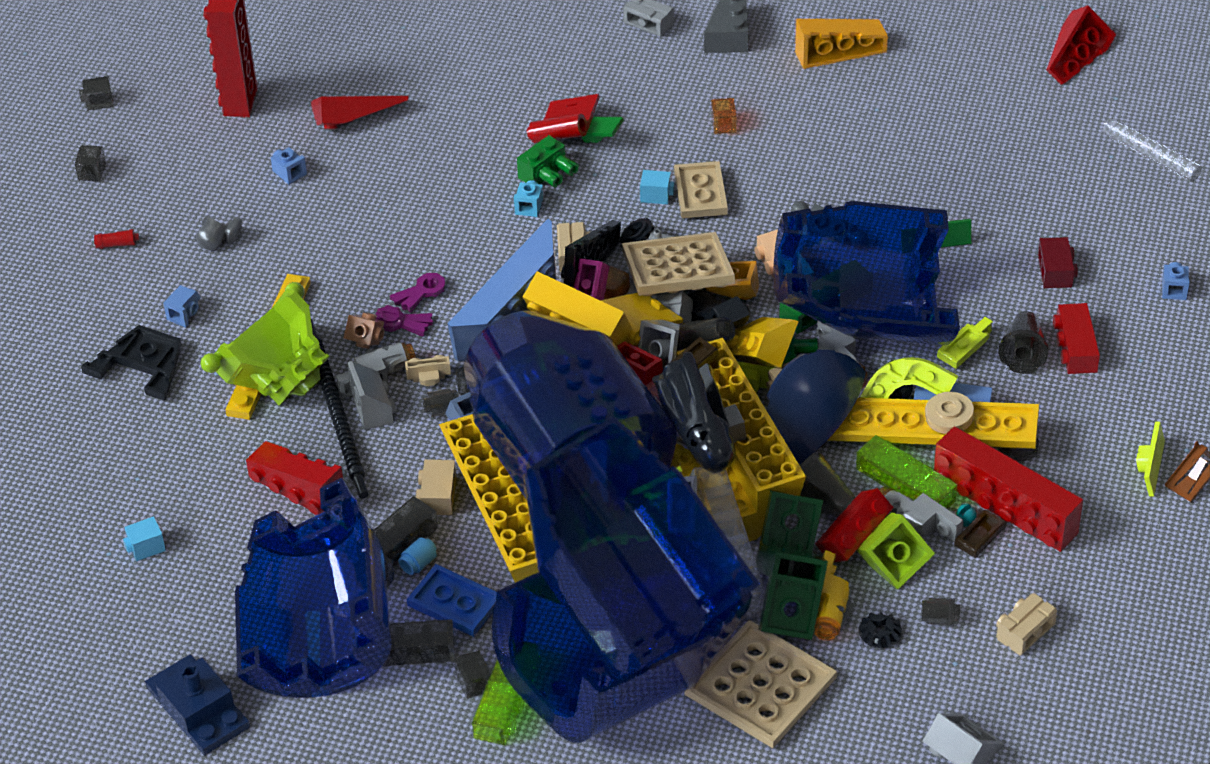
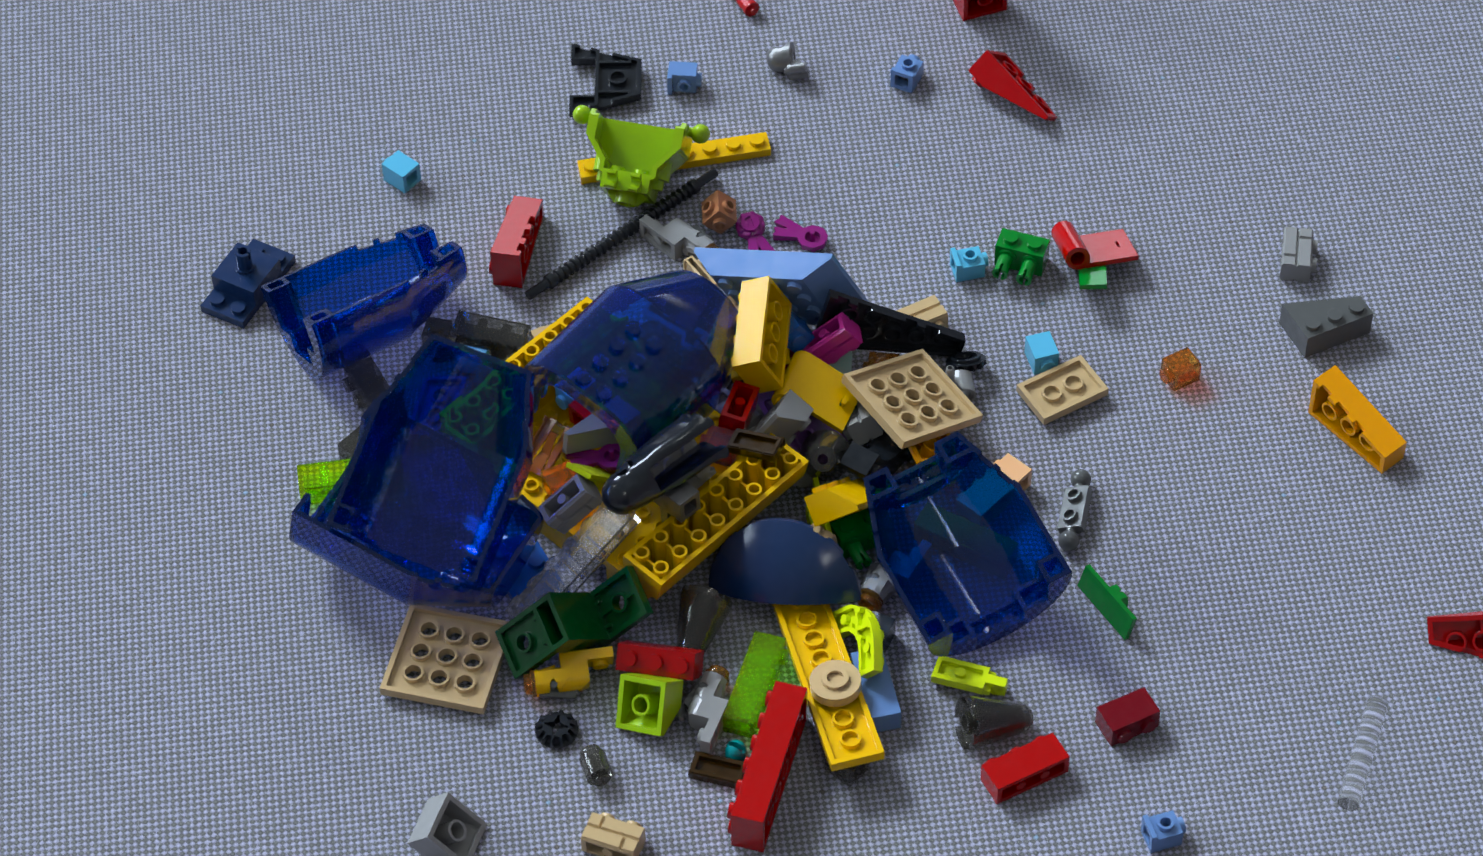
camera: 65 degrees right, 5 degrees up
(370, 396) = (637, 246): light grey slope -> none

